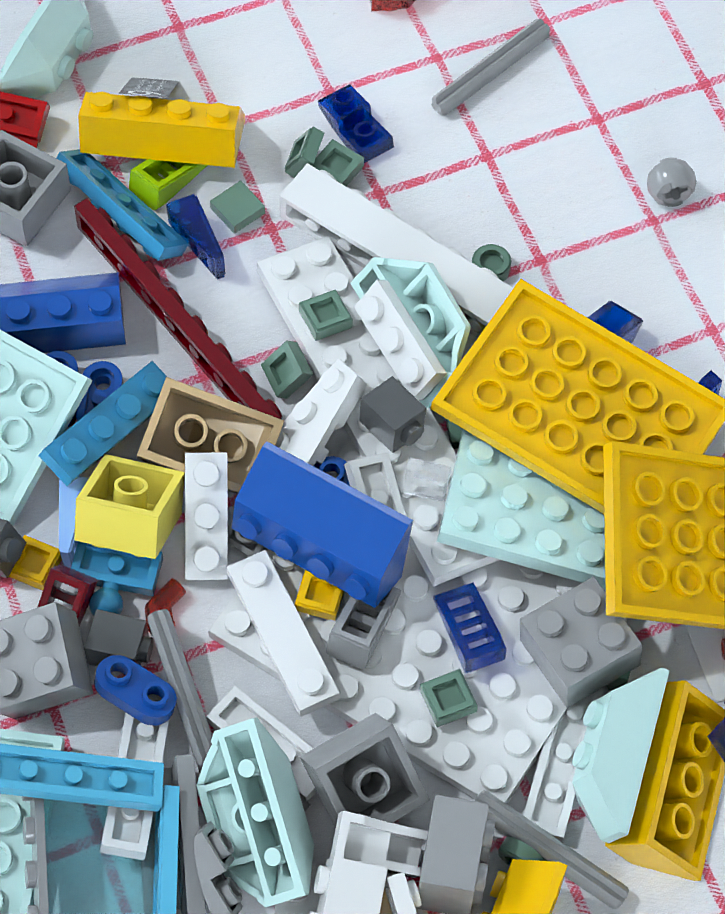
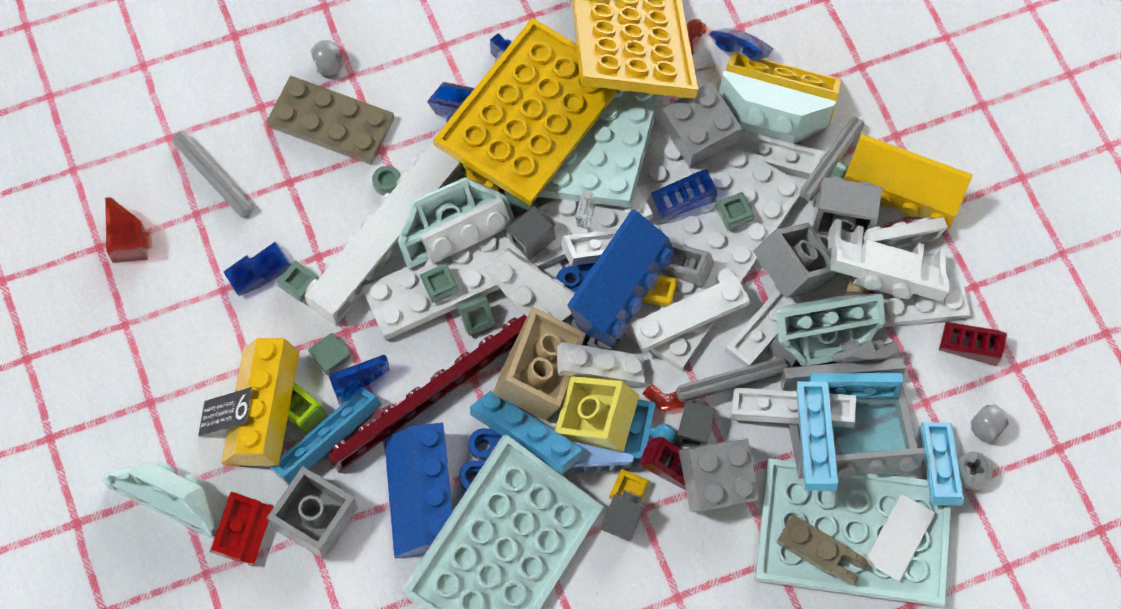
camera: 90 degrees left, 5 degrees up
(133, 690) = (737, 405): blue plate -> none
(304, 151) = (286, 302): sand green tile -> none
(579, 196) = (330, 120): none -> dark tan plate

